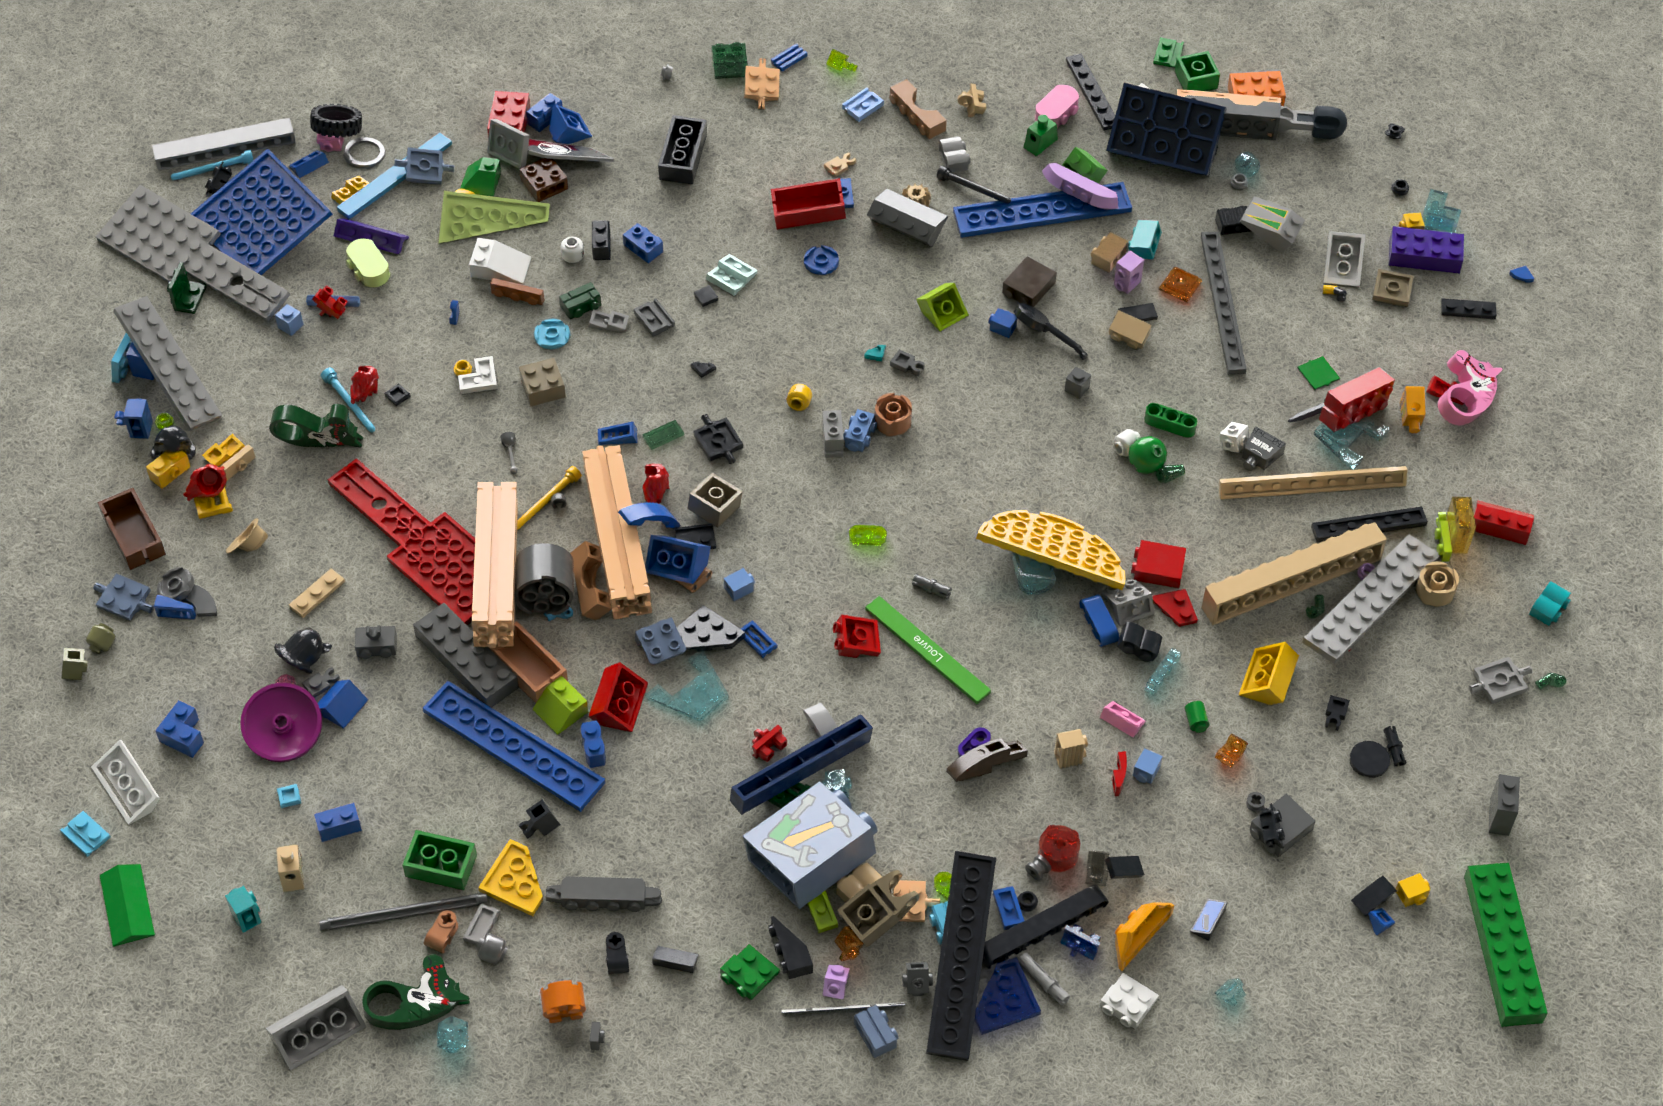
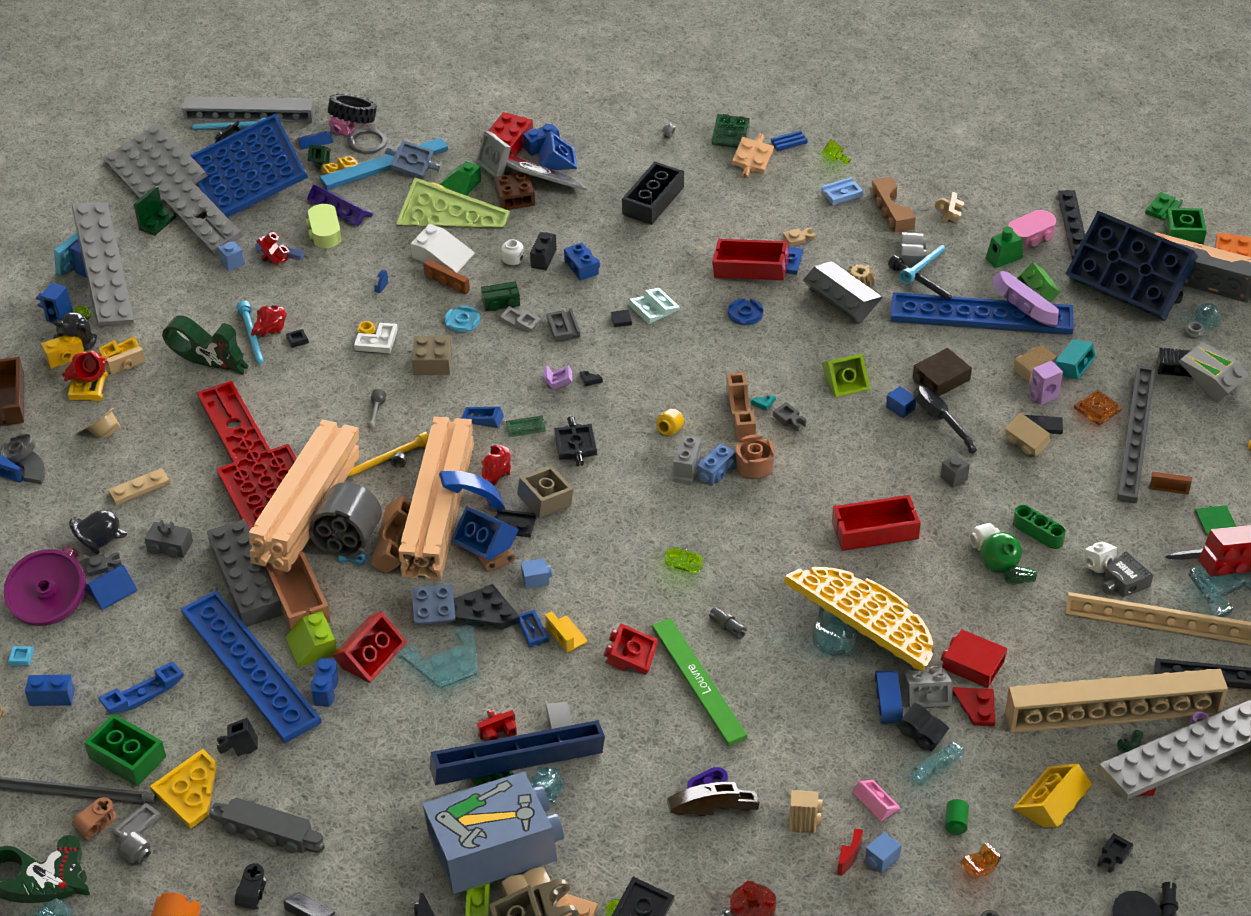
camera: 20 degrees right, 10 degrees down
(325, 182) = (319, 154): none -> dark green brick
(426, 797) = (164, 679): none -> blue slope
(673, 376) = (557, 378): none -> lavender bracket
(789, 635) = (564, 632): none -> yellow panel
(851, 352) = (742, 416): none -> medium nougat arch
(963, 186) = (908, 274): none -> medium azure piece
(1027, 453) = (875, 522): none -> red piece
(1269, 346) = (1170, 483): none -> dark orange tile

